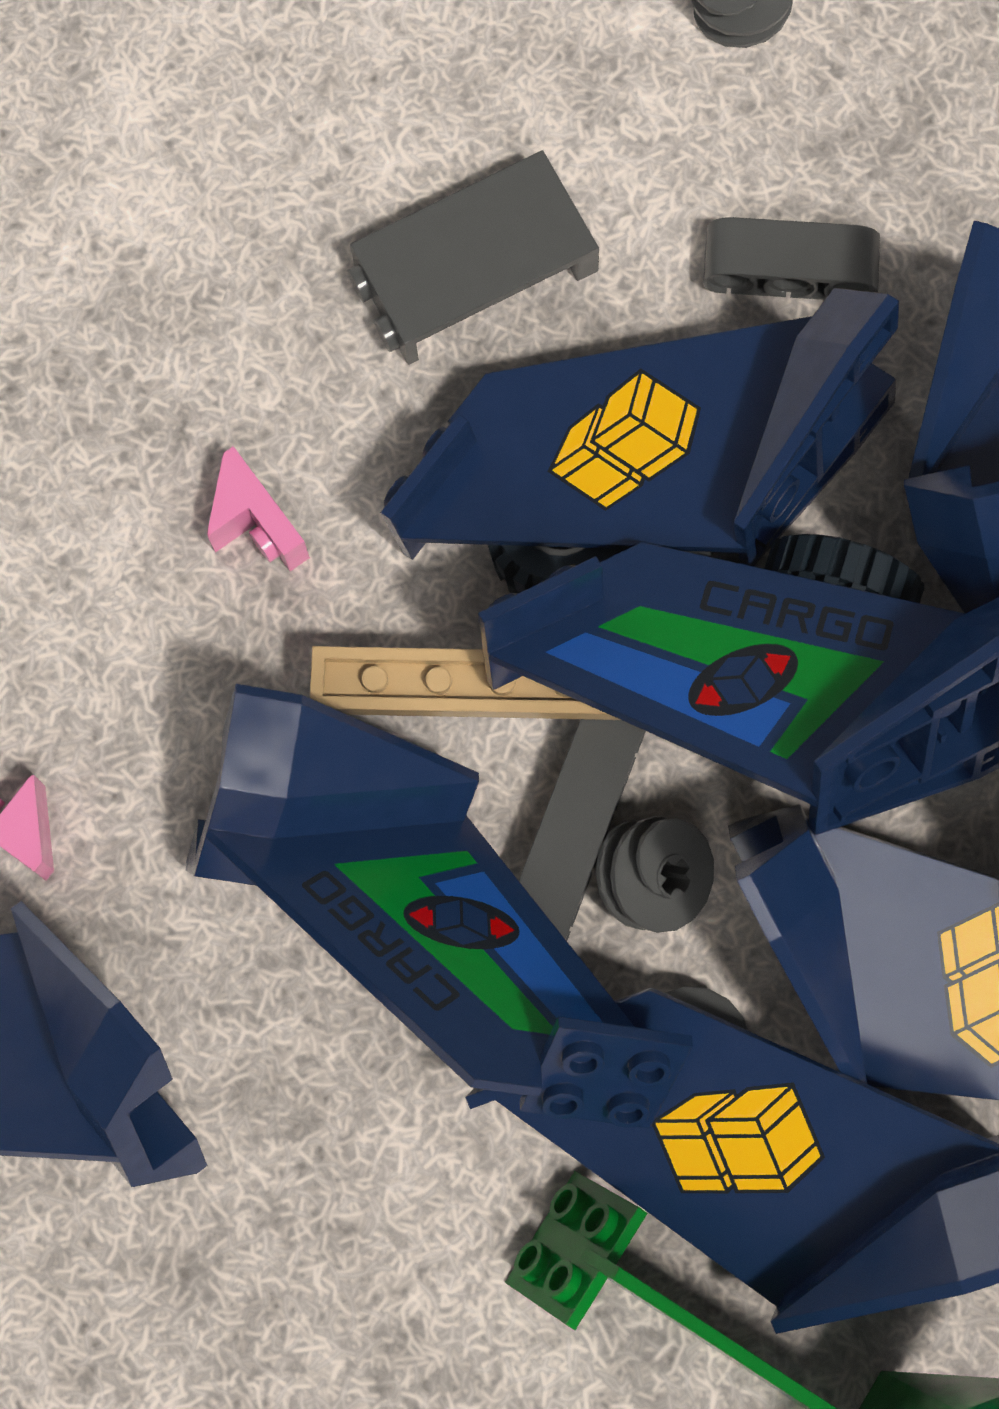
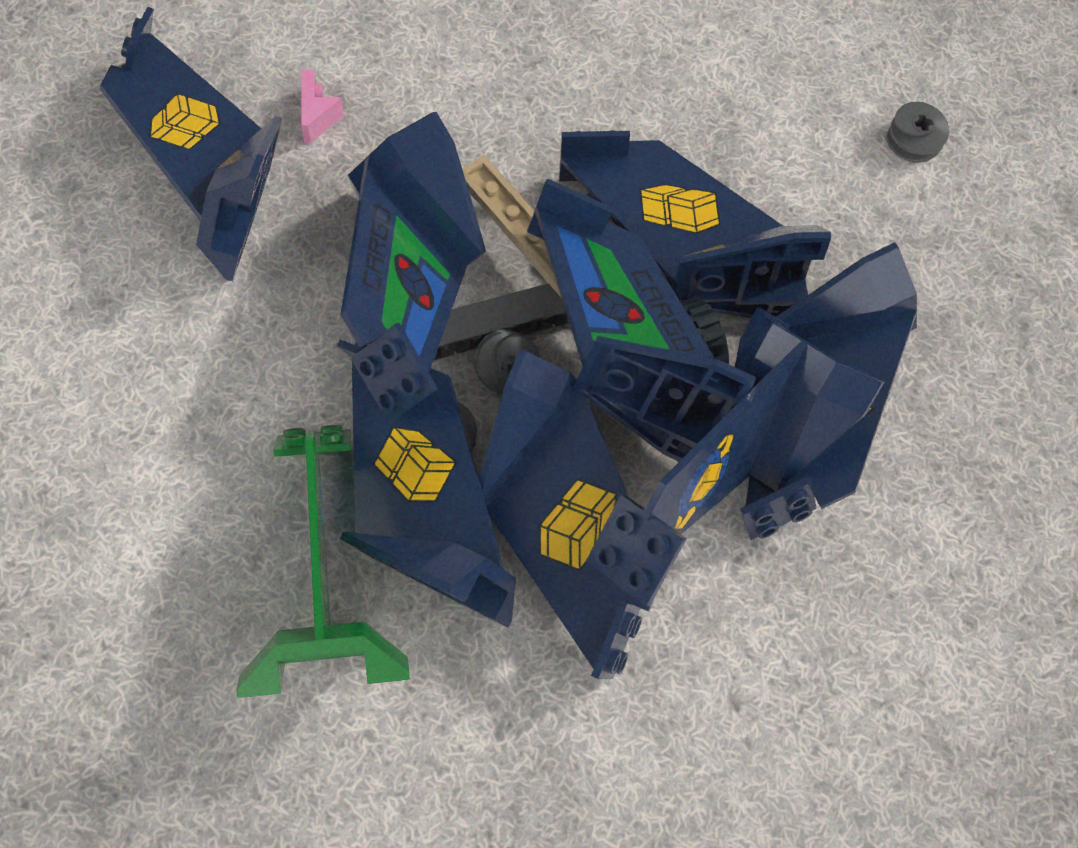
camera: 35 degrees right, 10 degrees down
(244, 502) = (521, 101): bright pink slope -> none
(470, 252) = (707, 107): dark grey panel -> none
(790, 256) = (811, 209): dark grey beam -> none

